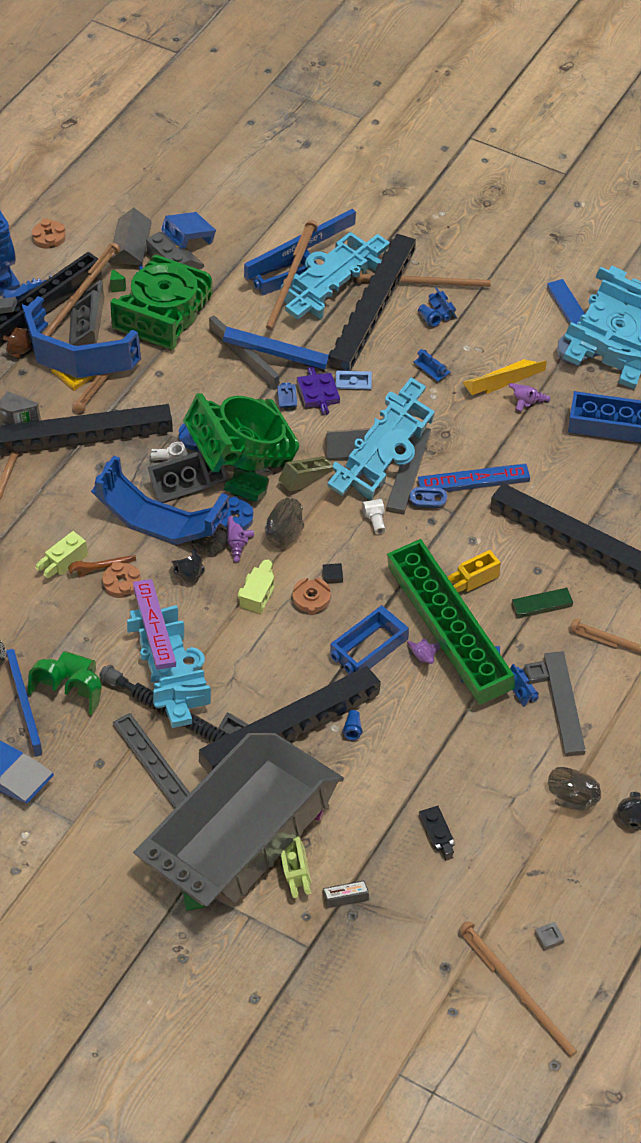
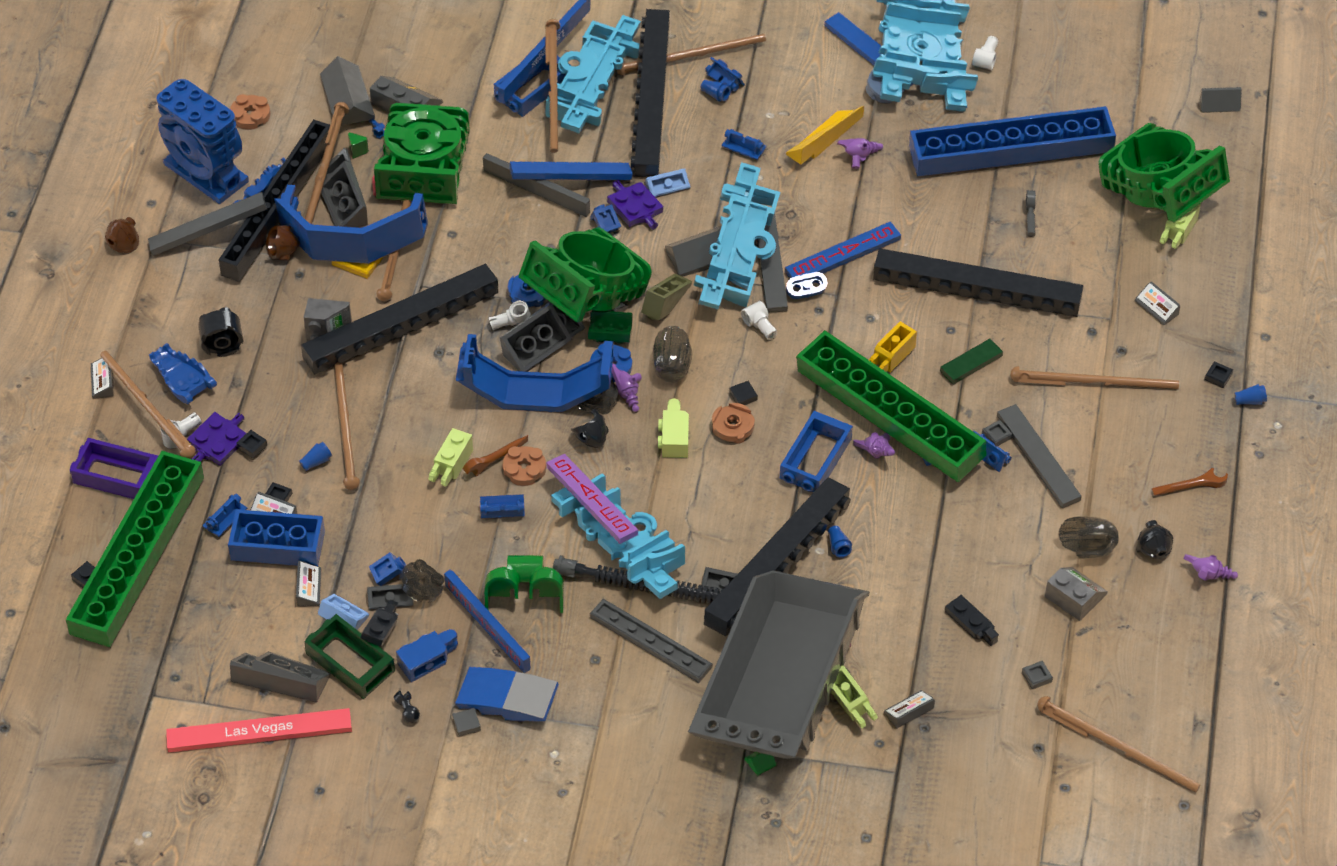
camera: 20 degrees left, 0 degrees up
(85, 608) = (502, 506): none -> blue hinge
(187, 226) = (408, 63): blue panel -> none
(474, 899) = (1037, 675): none -> dark grey tile
(540, 834) = (1074, 592): none -> flat silver slope
(549, 936) = (1126, 686): flat silver tile -> none

